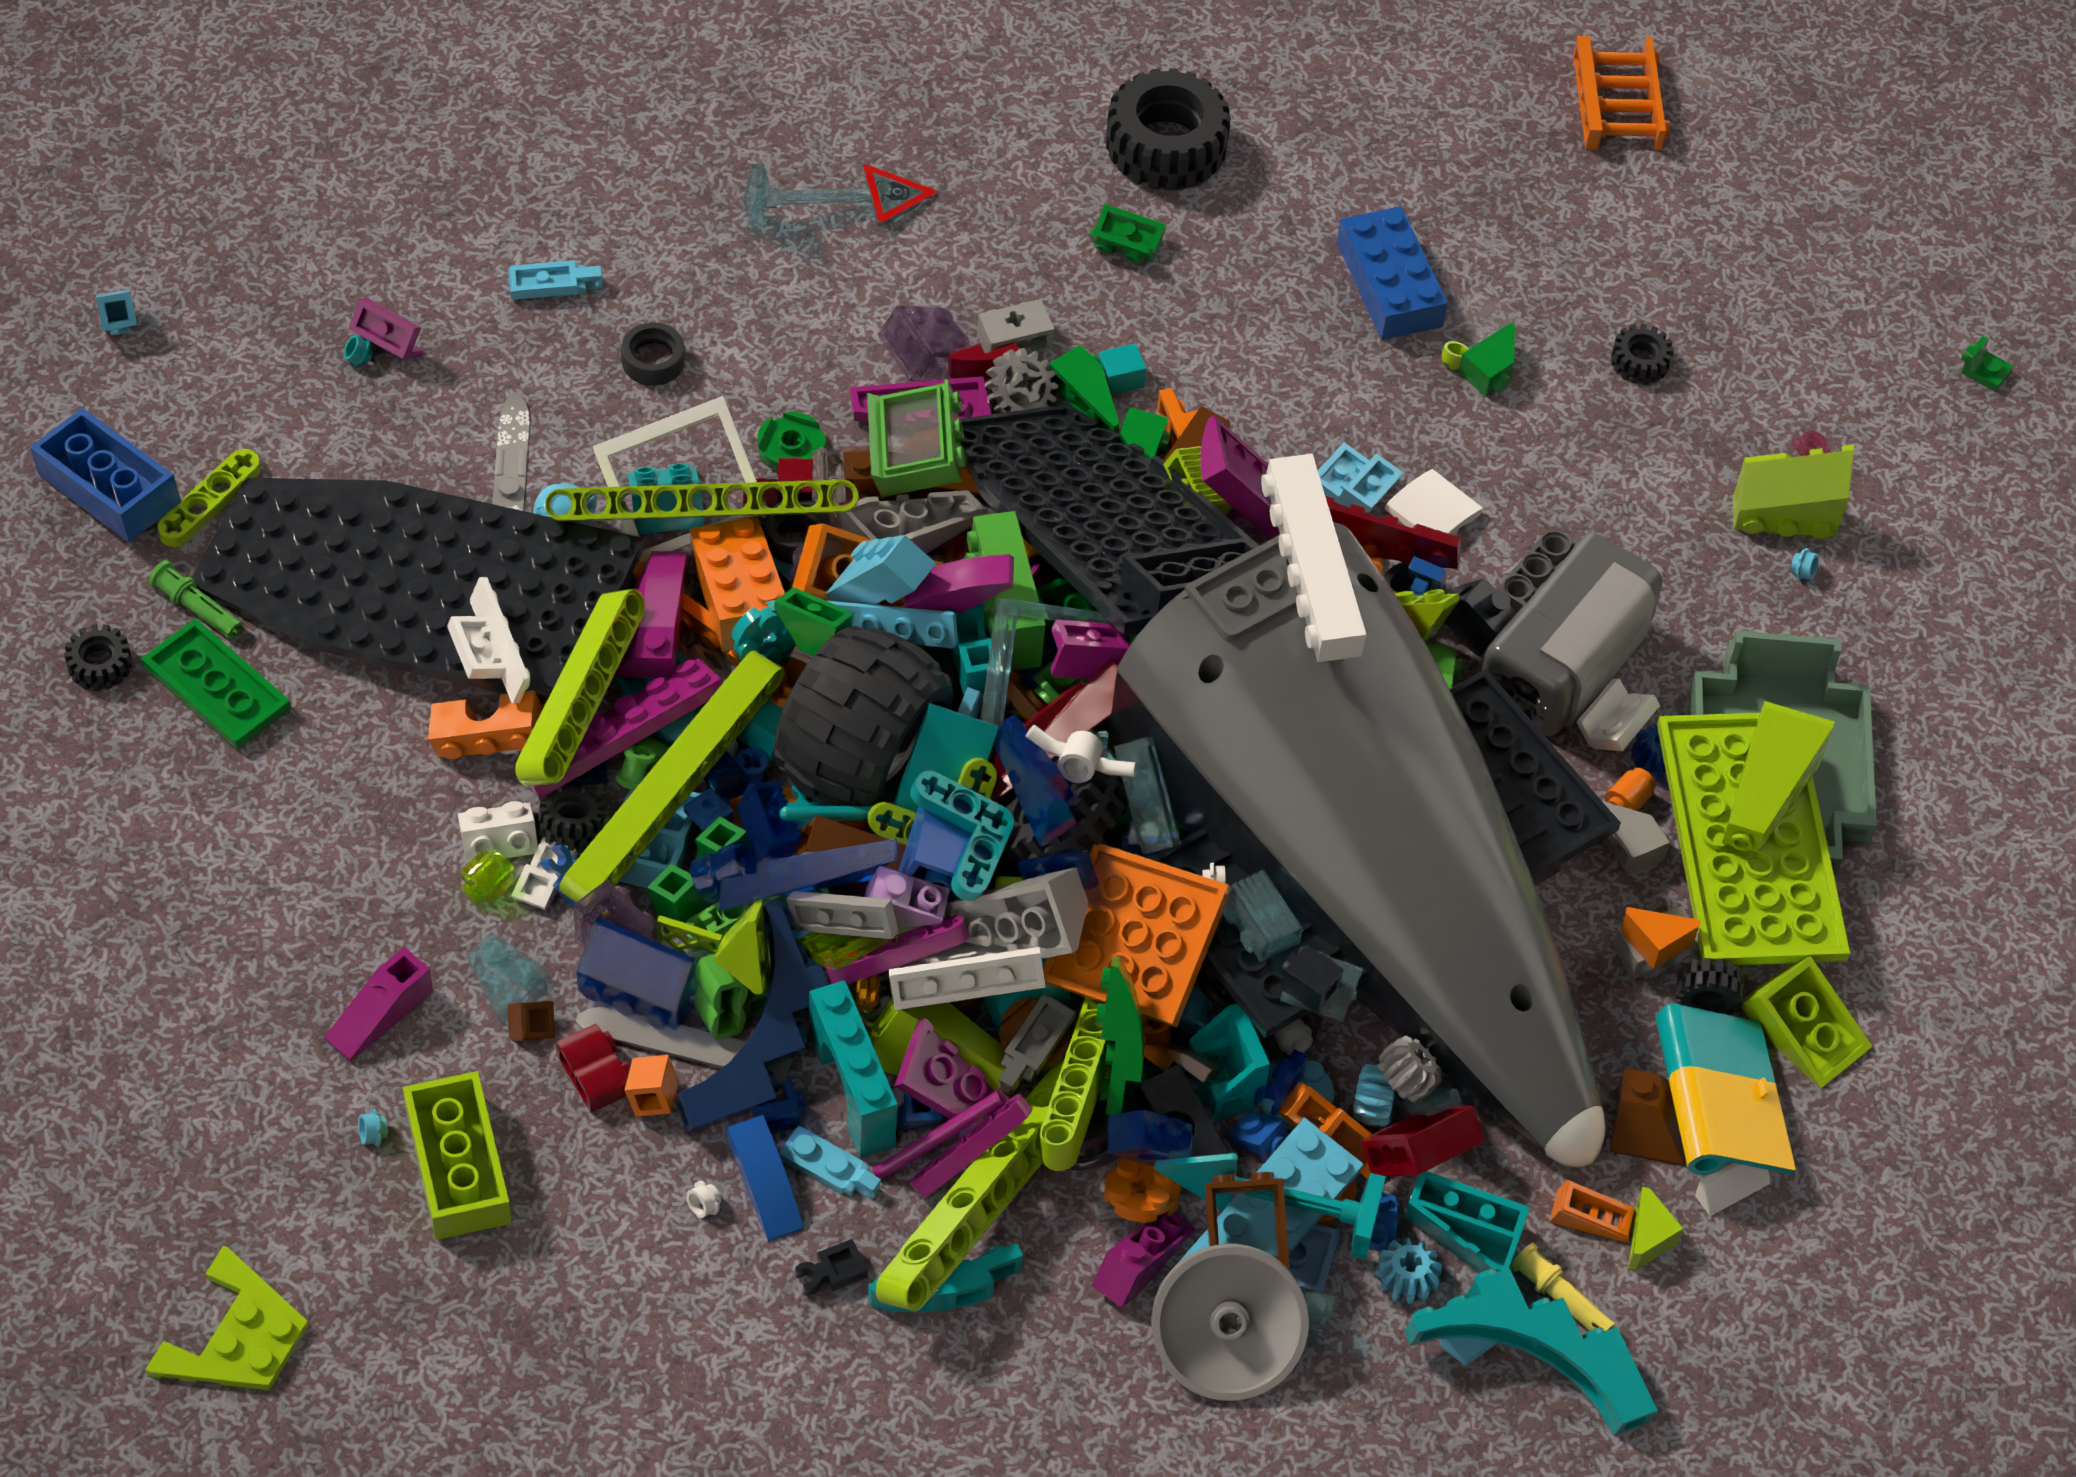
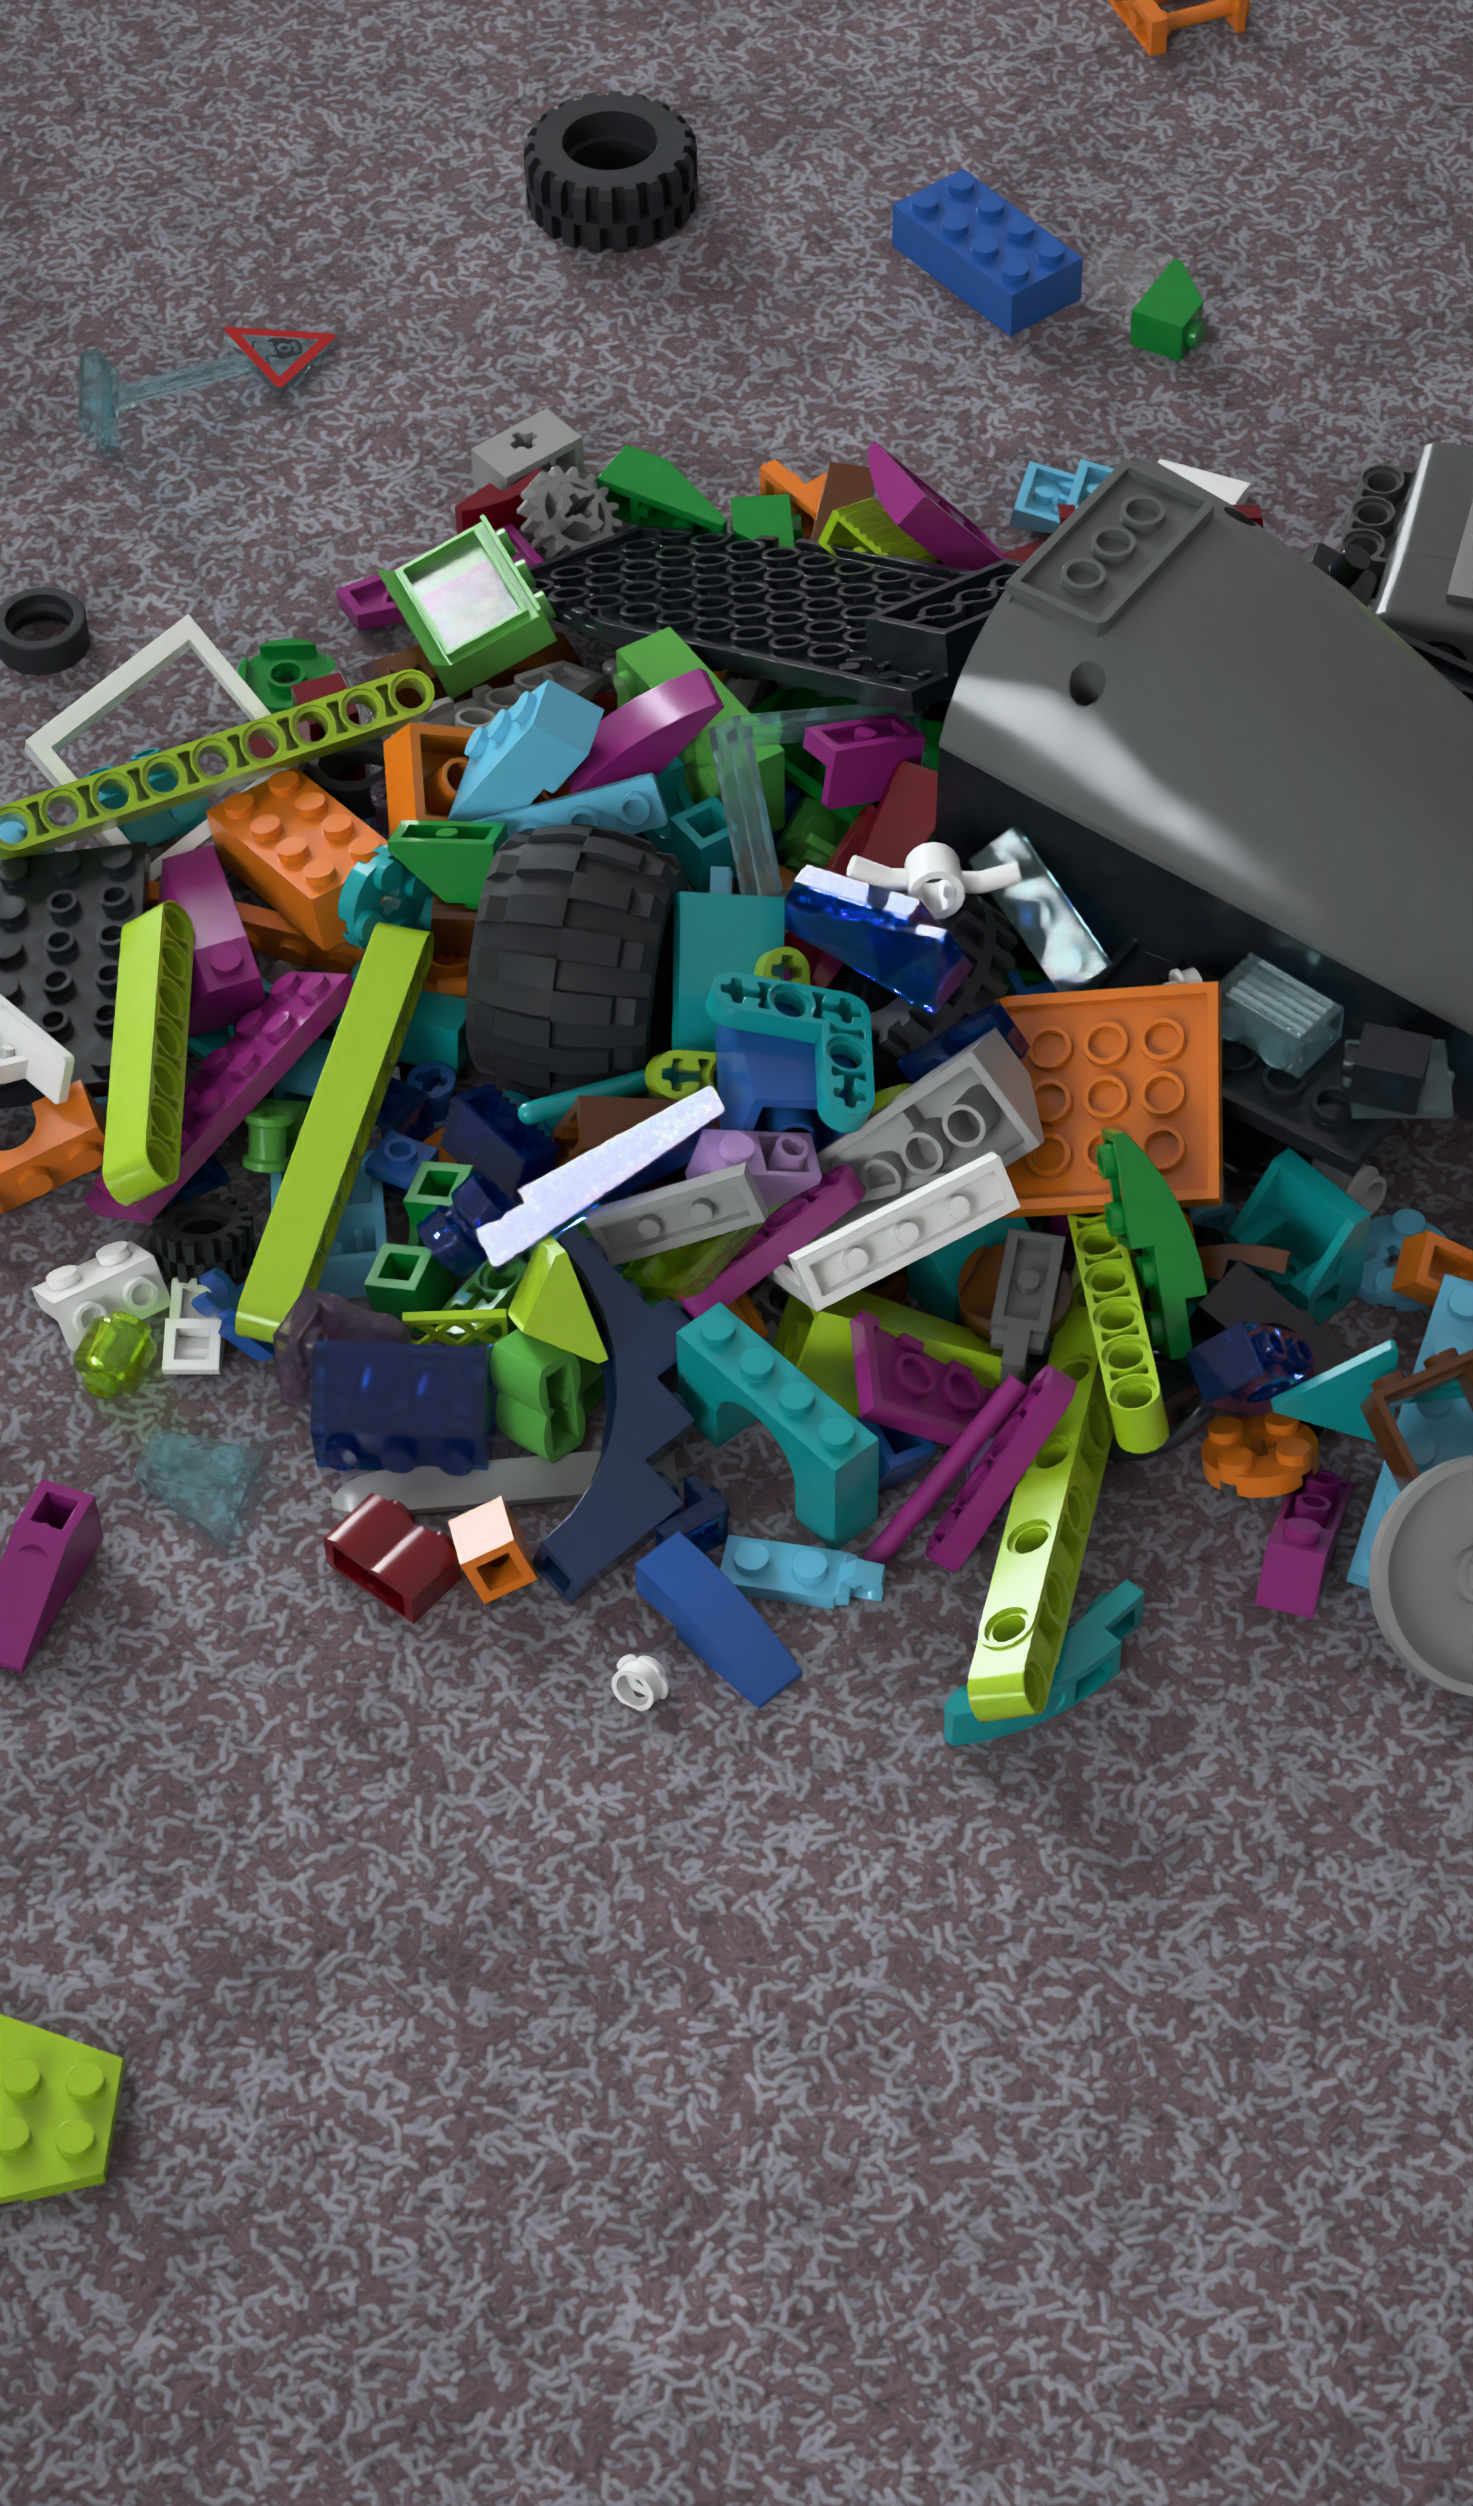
camera: 15 degrees left, 5 degrees down
(372, 1128) = (101, 1747): medium azure plate -> none
(457, 1155) = (248, 1743): lime brick -> none
(531, 1020) = (268, 1525): reddish brown slope -> none
(836, 1265) = (877, 1704): black plate -> none
(918, 336) = (400, 505): clear purple bracket -> none
(1123, 368) = (698, 457): teal panel -> none
(1128, 234) = (618, 308): green bracket -> none
(1258, 1134) = (1384, 1319): blue bracket -> none
(1286, 1077) = (1384, 1238): clear blue plate -> none
(1314, 558) = (1171, 491): white brick -> none
(1452, 354) = (1115, 321): lime hinge -> none
(1640, 368) = (1348, 269): black tyre -> none

